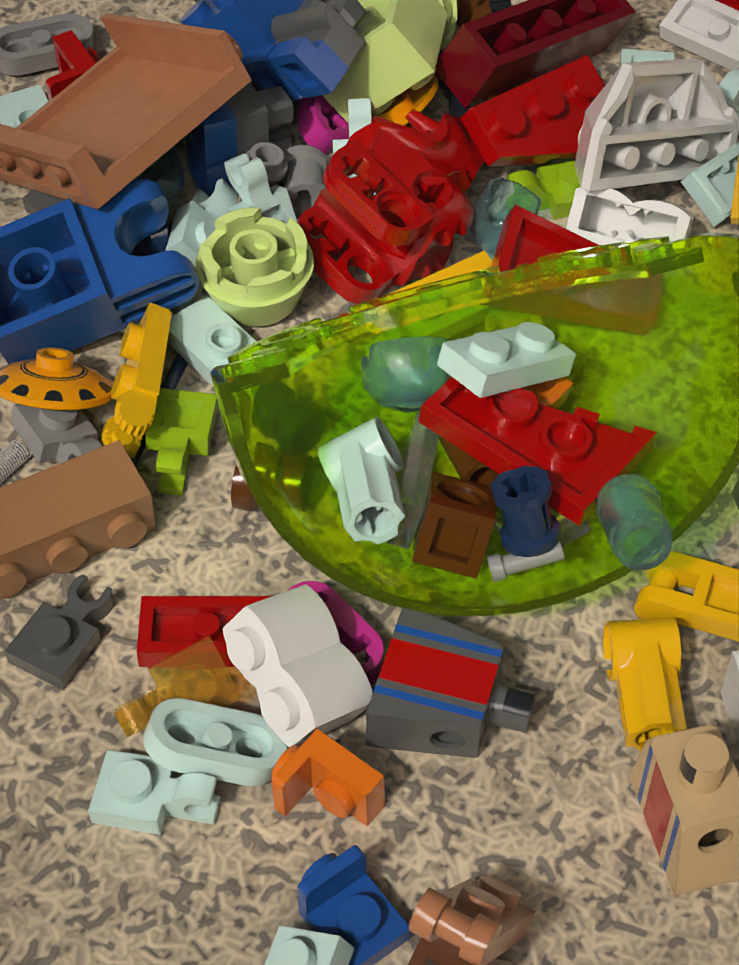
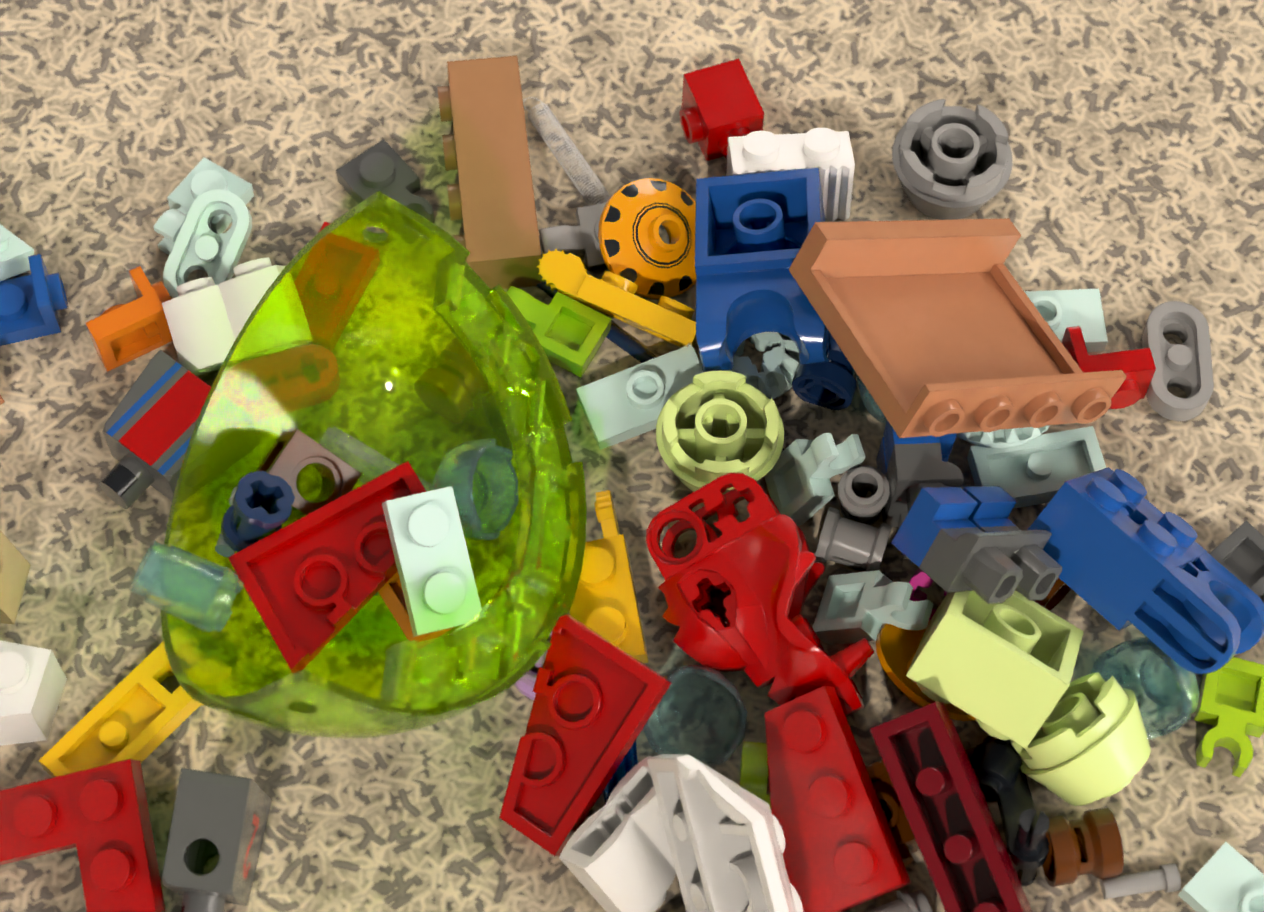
camera: 110 degrees right, 10 degrees up
(189, 674) = (279, 230): clear yellow plate -> none
(196, 219) = (810, 412): light aqua plate -> none
(363, 474) = (394, 417): light aqua piece -> none
(646, 675) = (92, 605): yellow piece -> none

